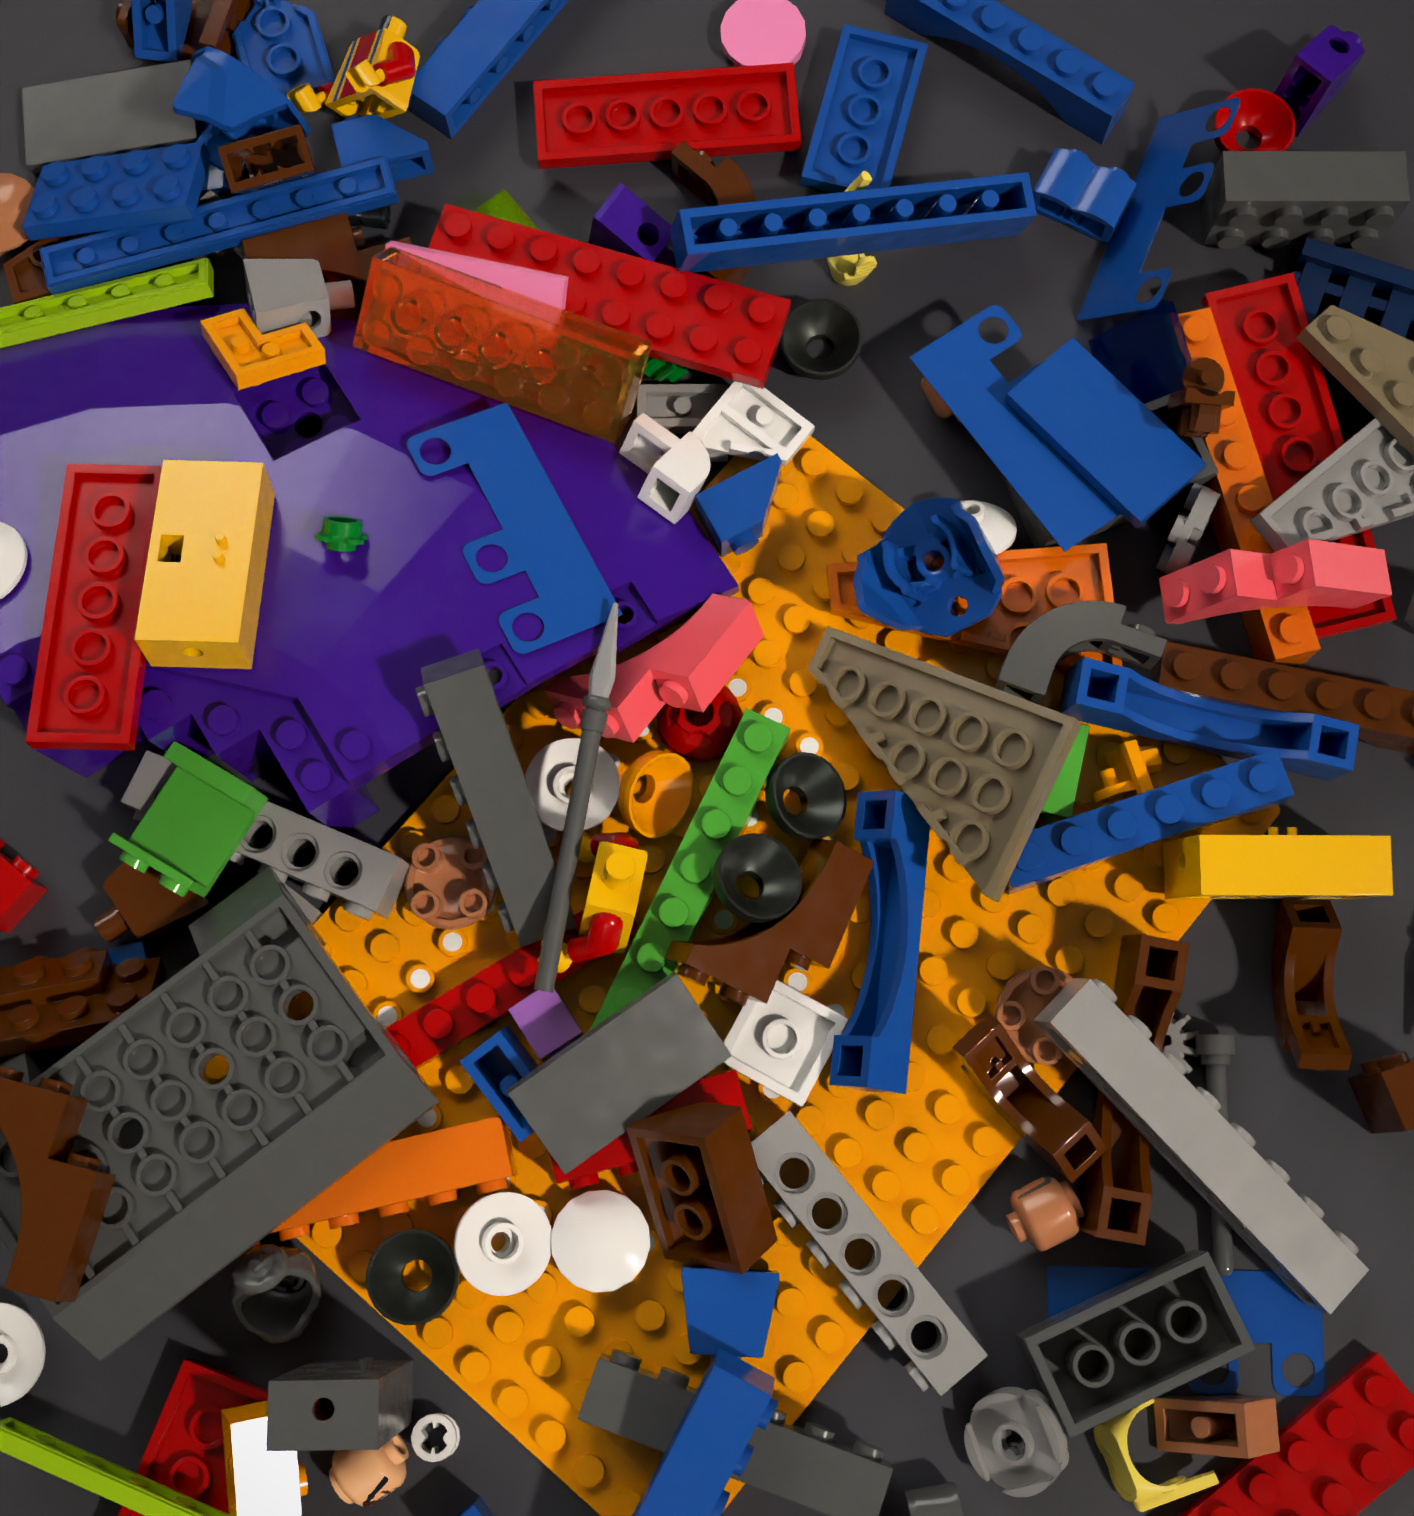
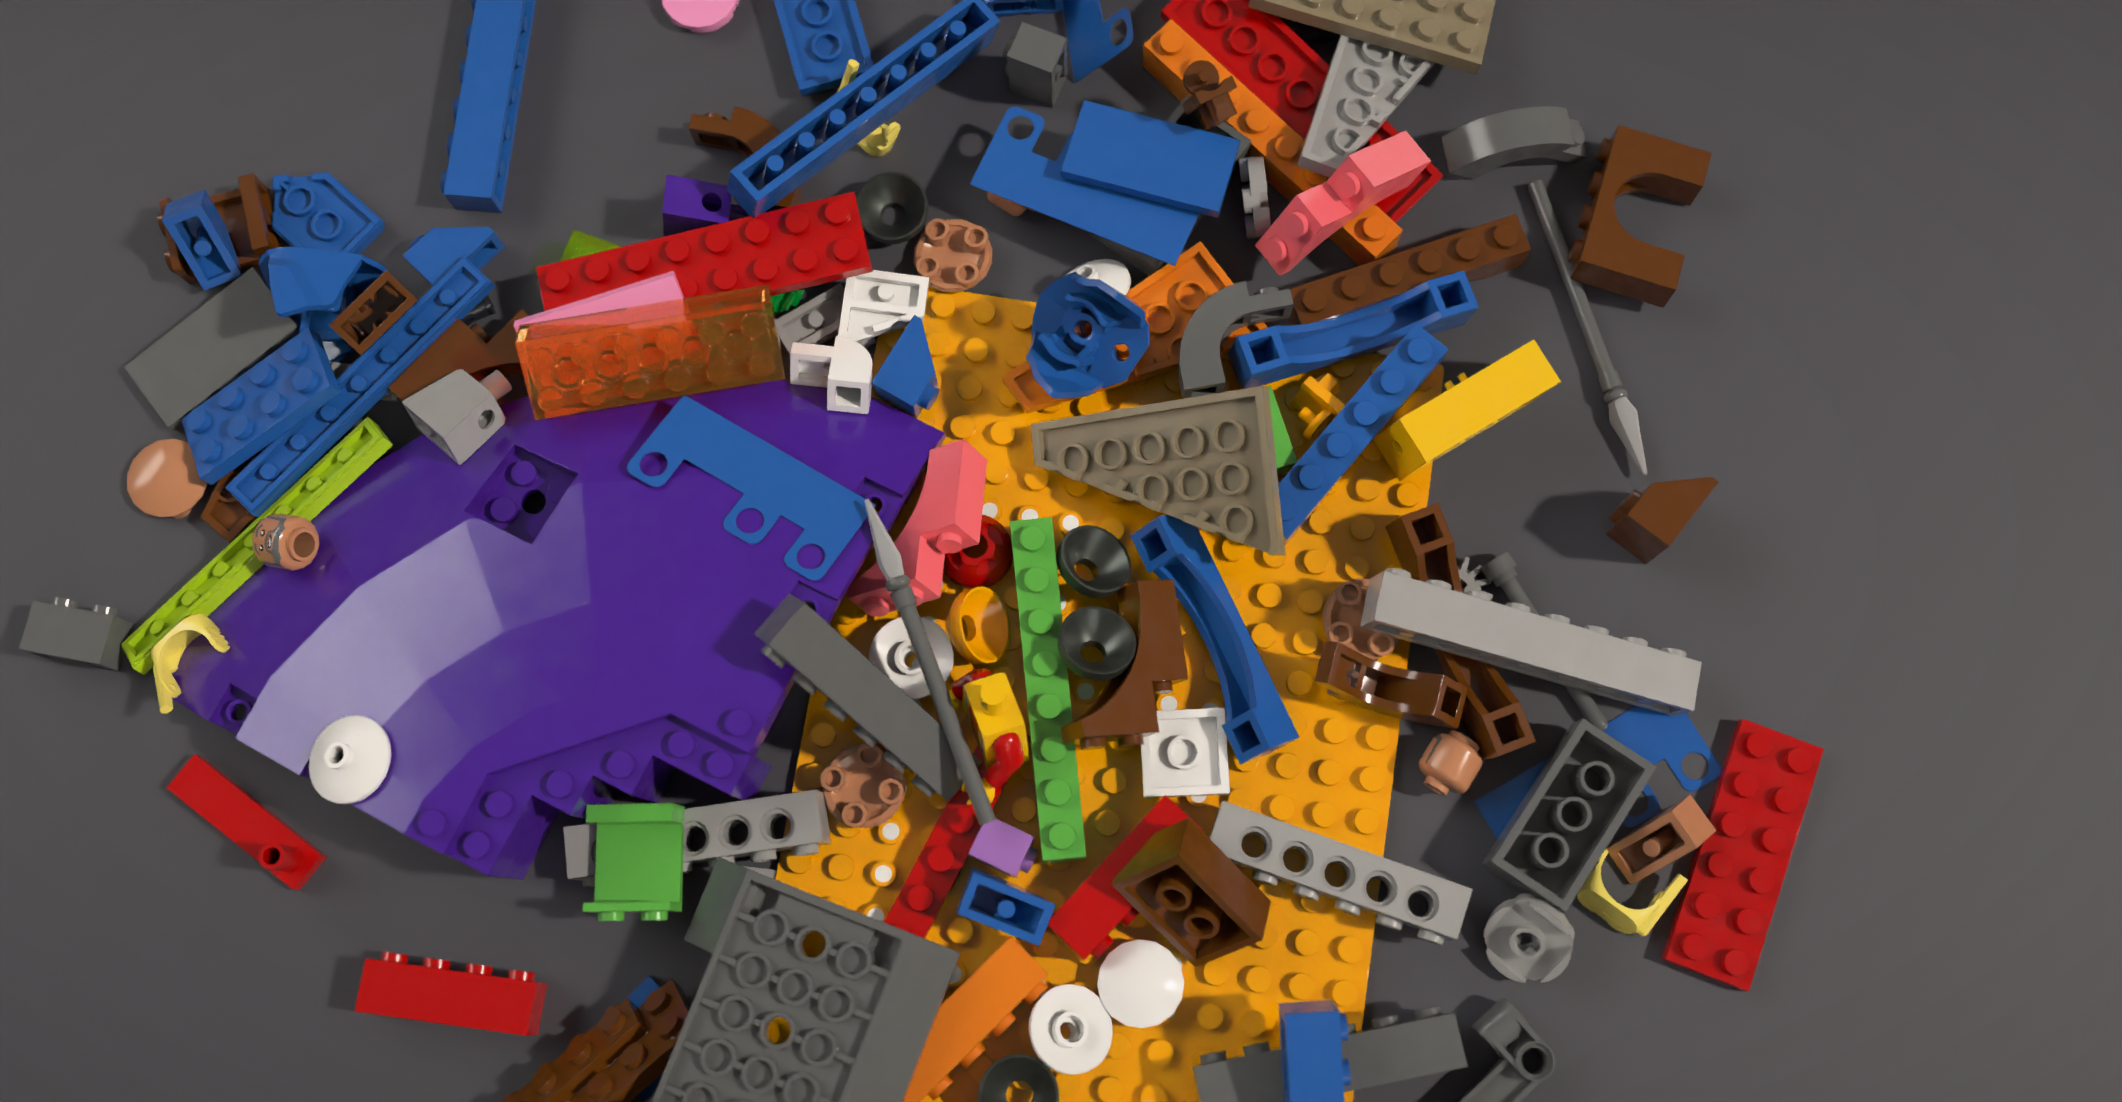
camera: 30 degrees left, 0 degrees up
(57, 329) = (285, 541): none -> nougat head
(87, 655) = (472, 735): red plate -> none
(147, 906) = (638, 945): reddish brown torso -> none
(206, 565) = (536, 653): yellow brick -> none
(256, 357) = (464, 472): light orange plate -> none
(341, 533) = (625, 568): green plate -> none
(372, 78) = (412, 201): torso -> none
(619, 1072) = (1082, 848): dark grey tile -> none
(652, 113) = (658, 99): red plate -> none
(728, 1309) = (1266, 974): blue torso -> none
(854, 419) = (953, 254): none -> nougat dish
(1048, 277) = (1036, 63): none -> dark grey brick
(1146, 352) = (1144, 80): clear blue tile -> none
(1303, 984) = (1534, 483): reddish brown arch -> none

